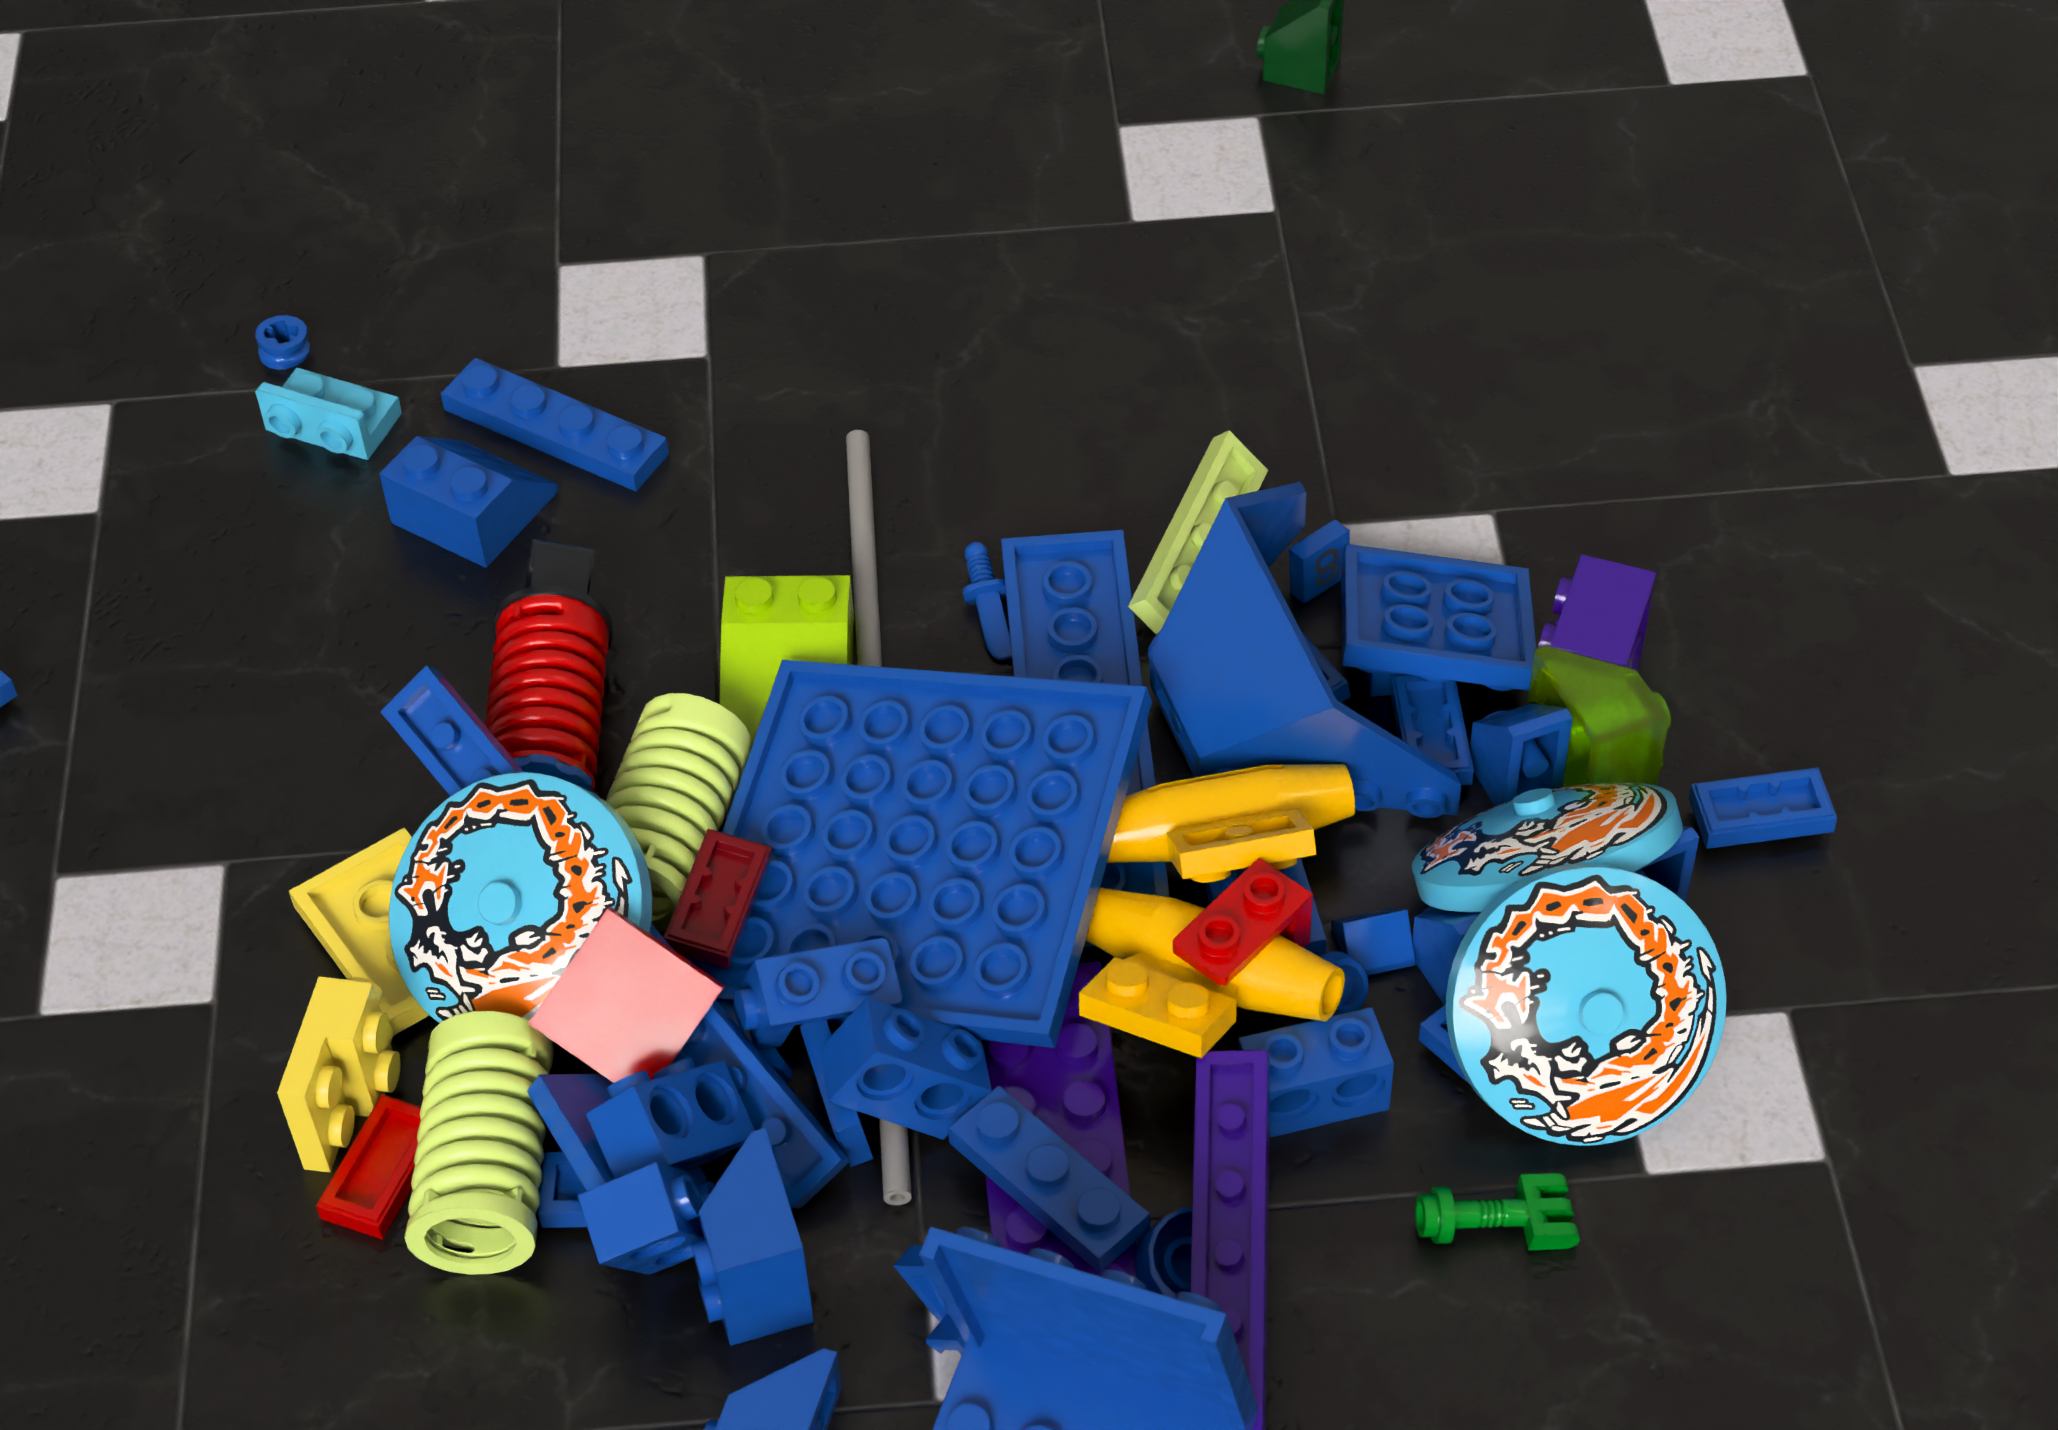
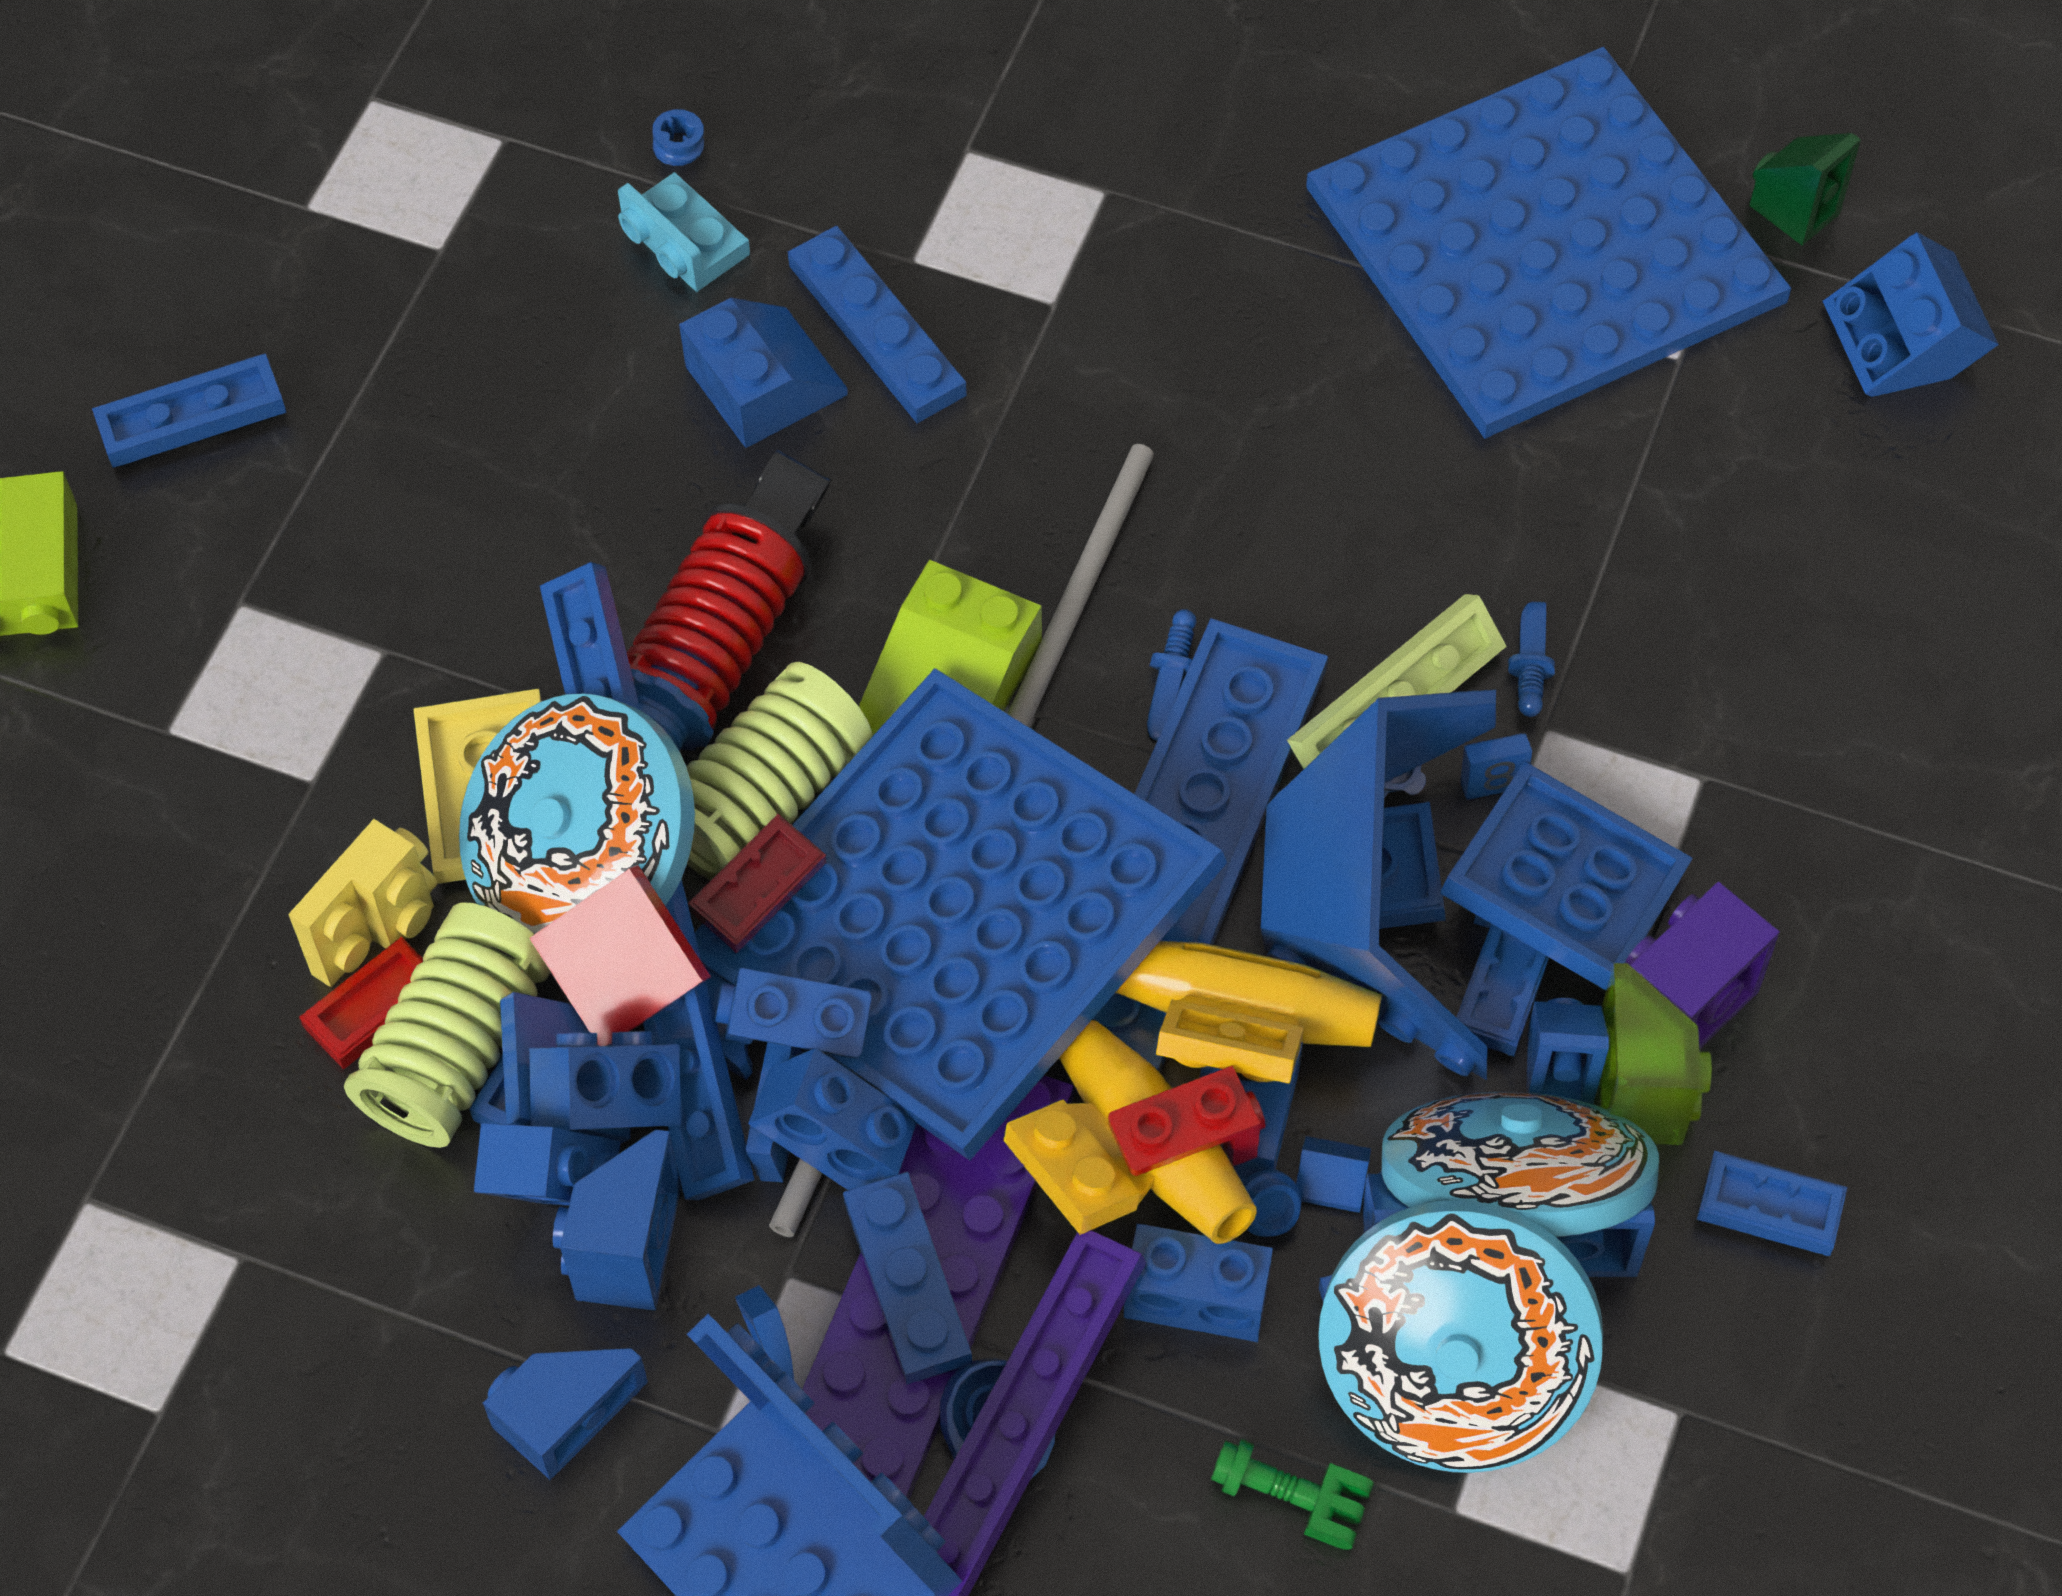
camera: 25 degrees right, 10 degrees up
(1109, 161) = (1546, 241): none -> blue plate
(1295, 470) = (1531, 663): none -> blue piece
(1450, 110) = (1910, 319): none -> blue slope

